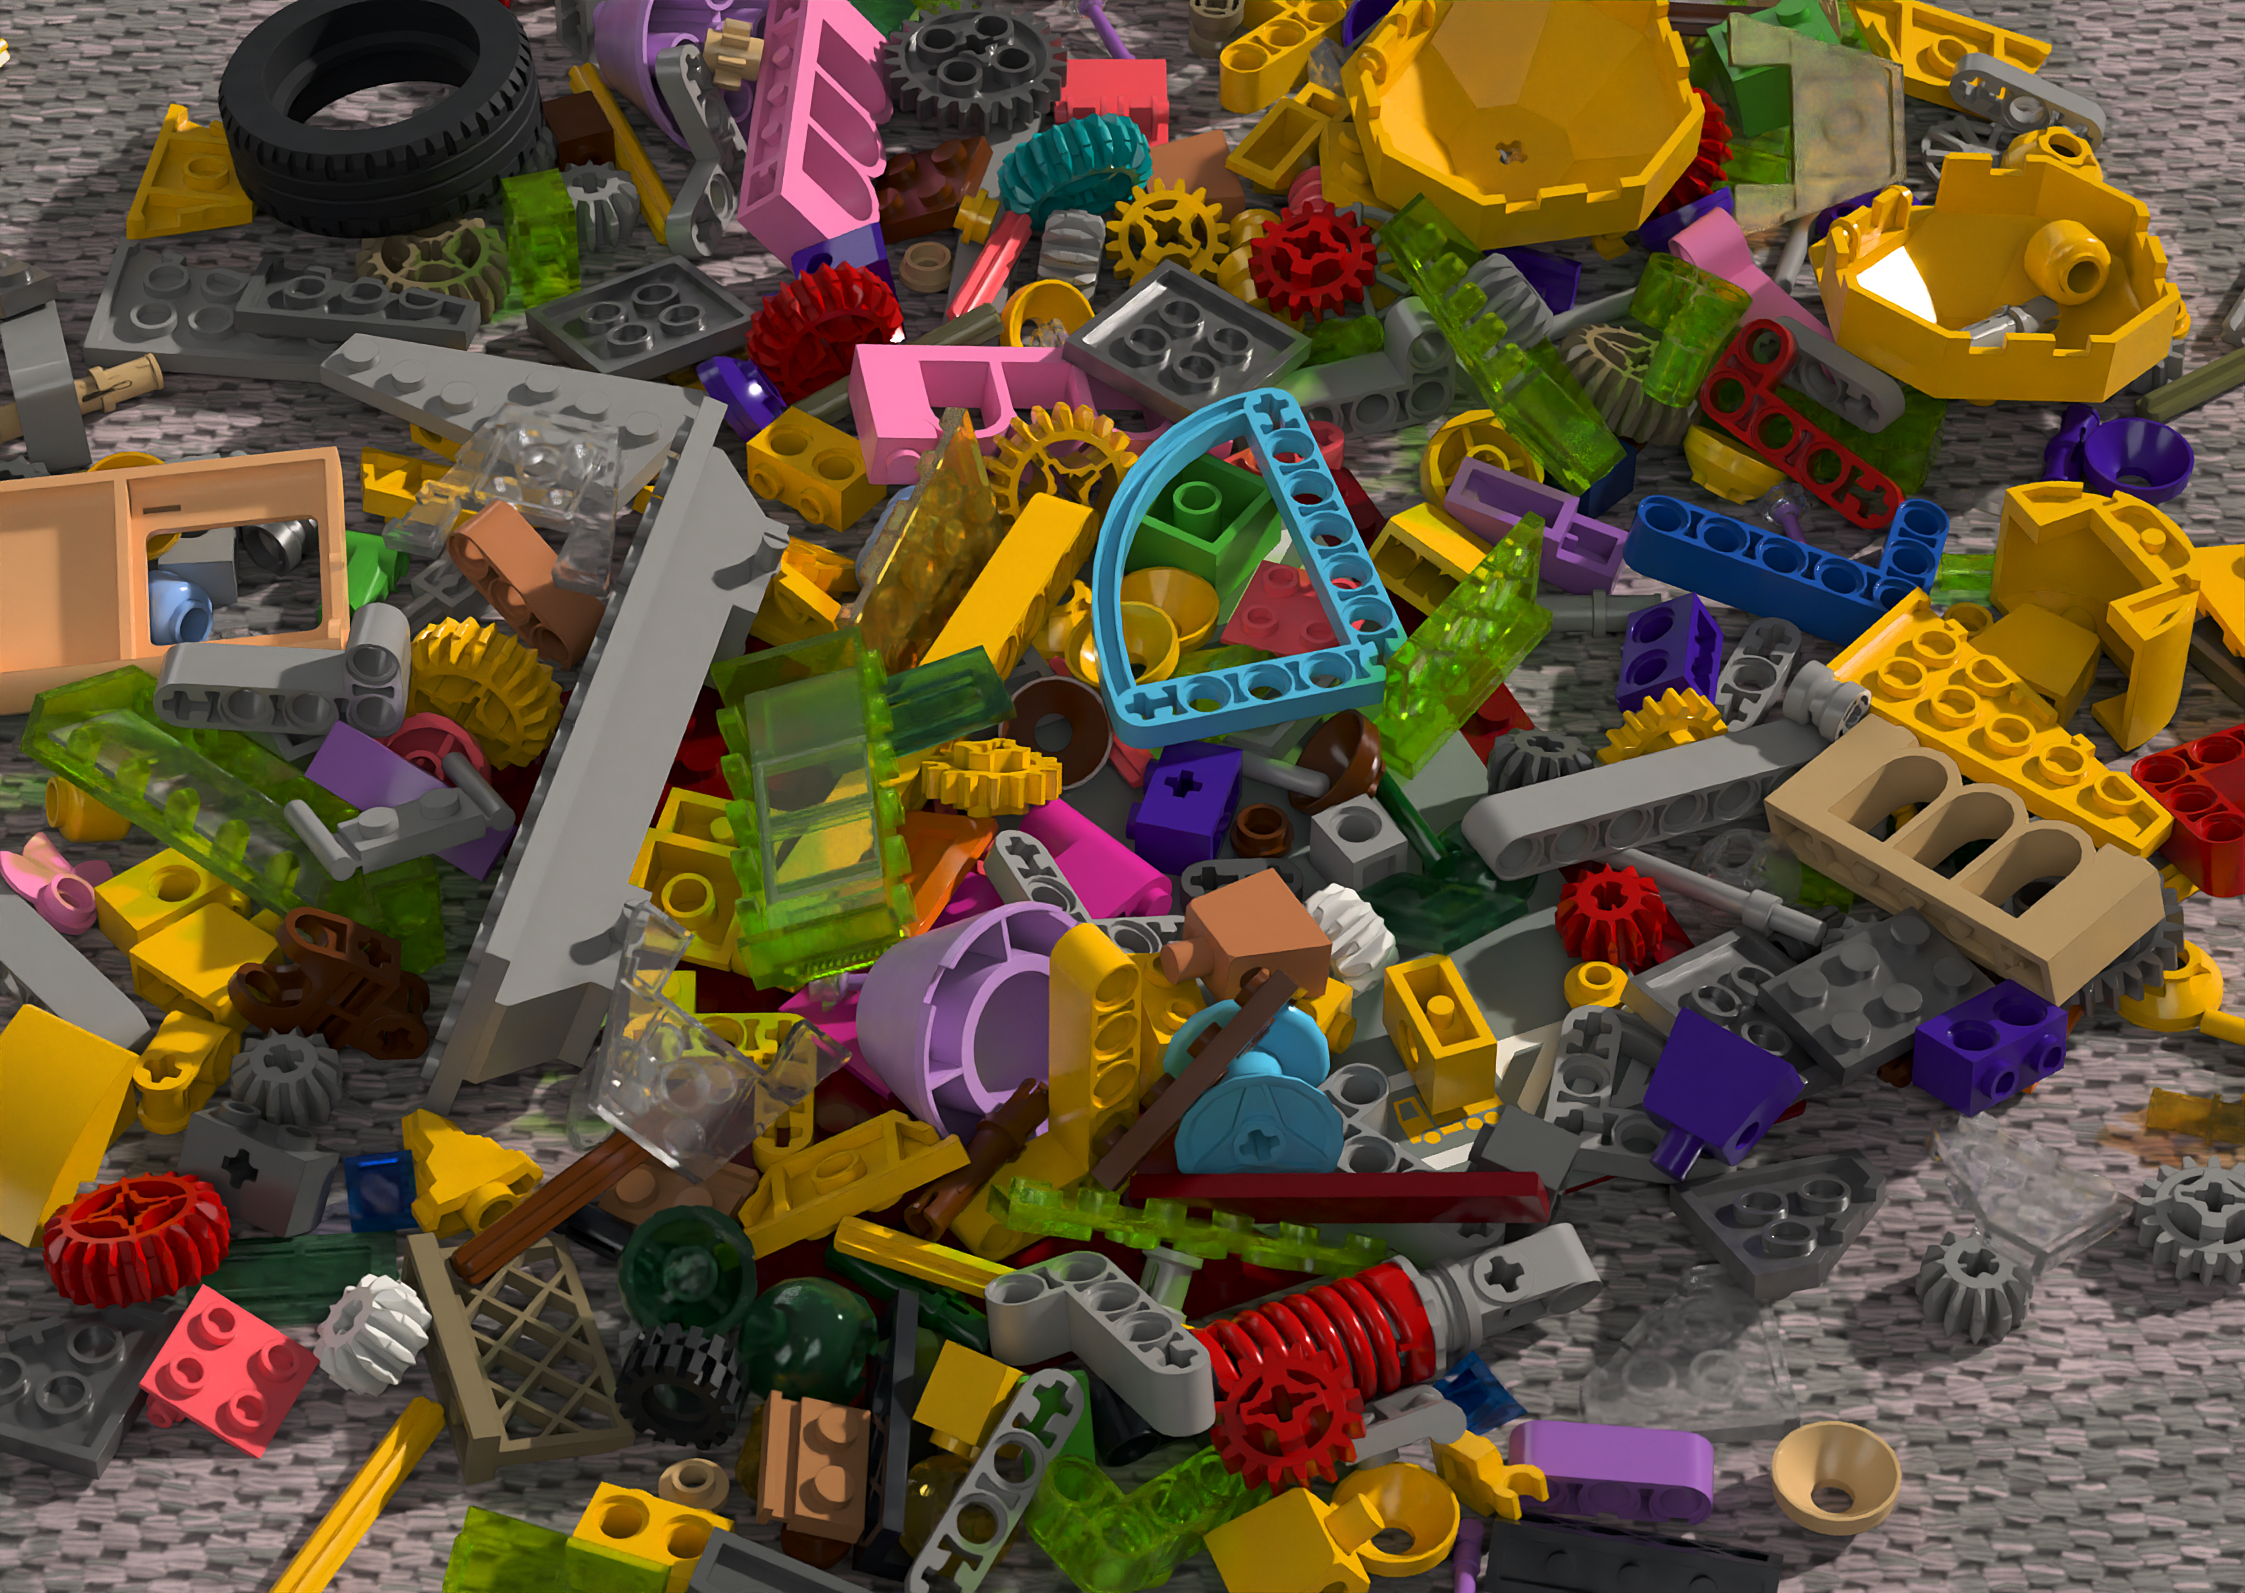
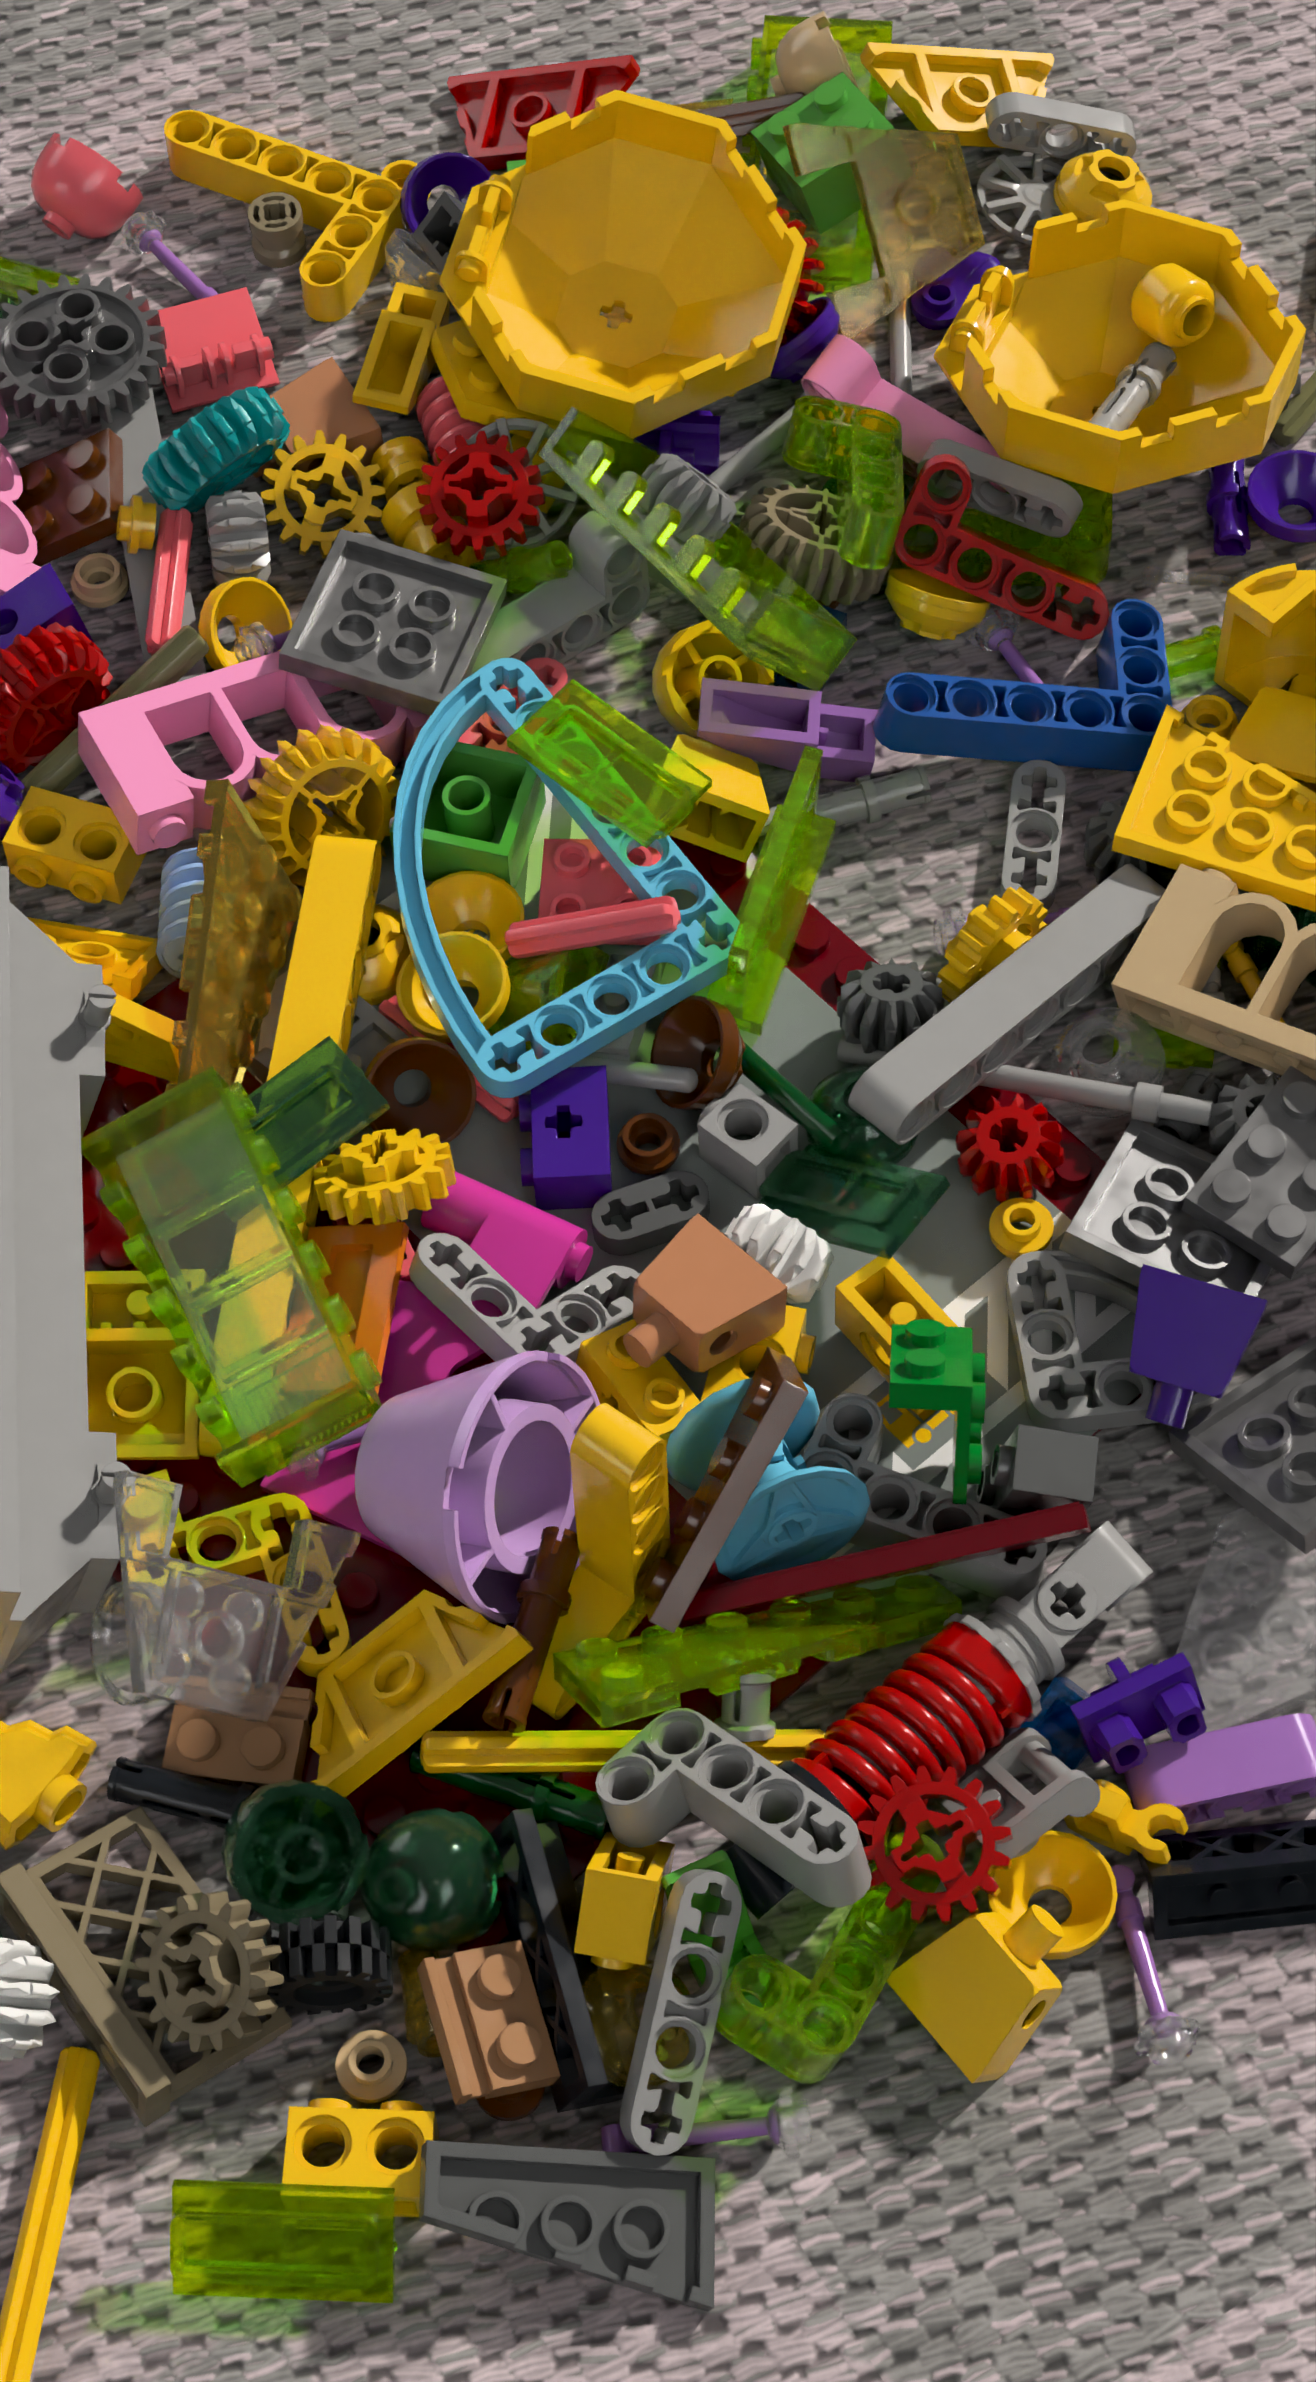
camera: 15 degrees left, 15 degrees up
(547, 1207) = (118, 1800): reddish brown axle -> none
(570, 1350) = (209, 1971): none -> dark tan gear
(1273, 628) = (593, 927): none -> coral axle
(1341, 493) = (610, 763): none -> clear neon green piece
(1466, 1046) = (939, 1371): none -> green bracket
(1539, 1385) = (1137, 1707): none -> dark purple hips
(1669, 648) = (959, 843): dark purple brick -> none
(1824, 701) = (1141, 866): light grey wheel -> none

